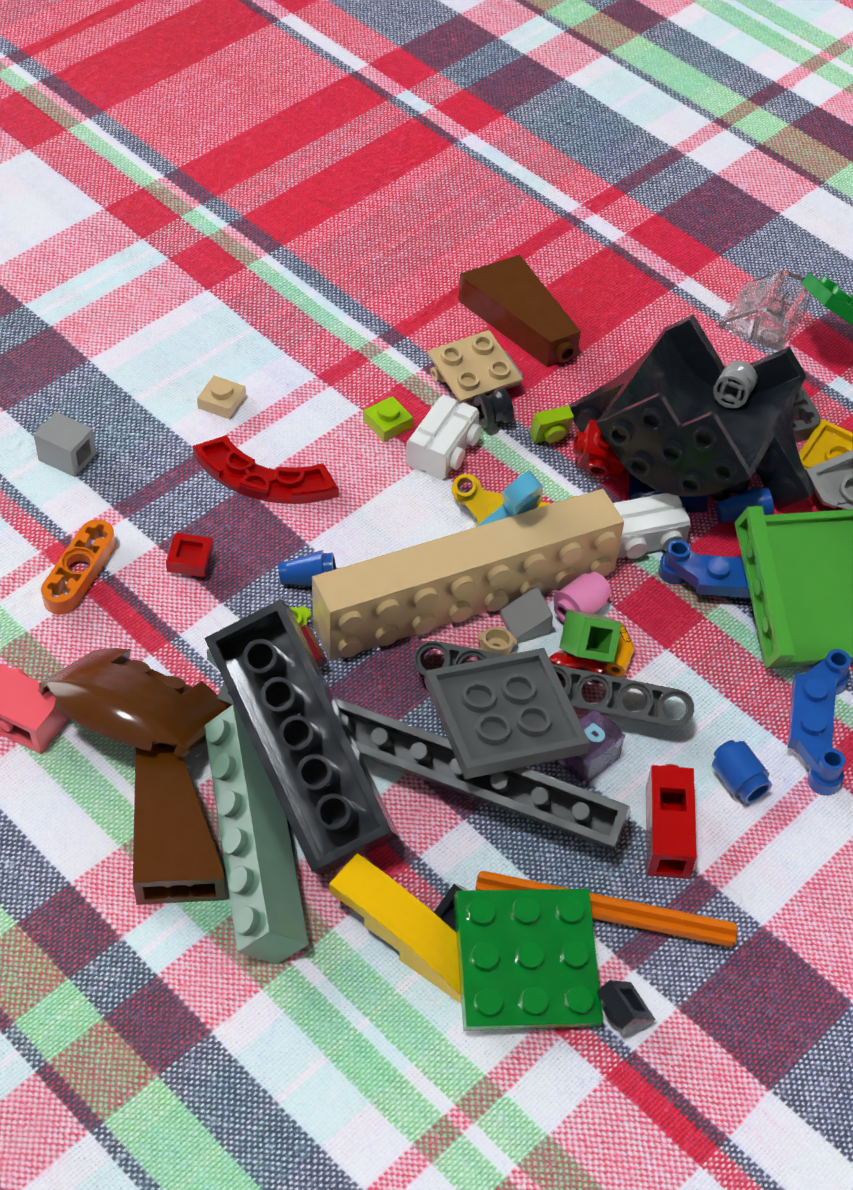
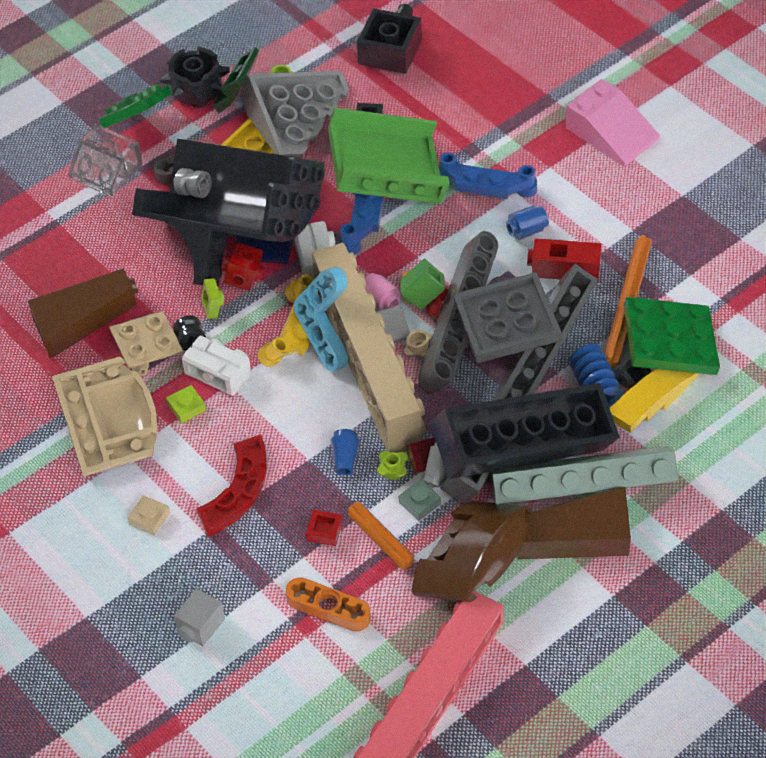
camera: 80 degrees left, 0 degrees up
(178, 615) = (381, 535): none -> orange axle
(357, 342) = (107, 415): none -> tan slope
(439, 851) = (591, 367): none -> blue piece
(625, 1006) = (699, 293): black plate -> none

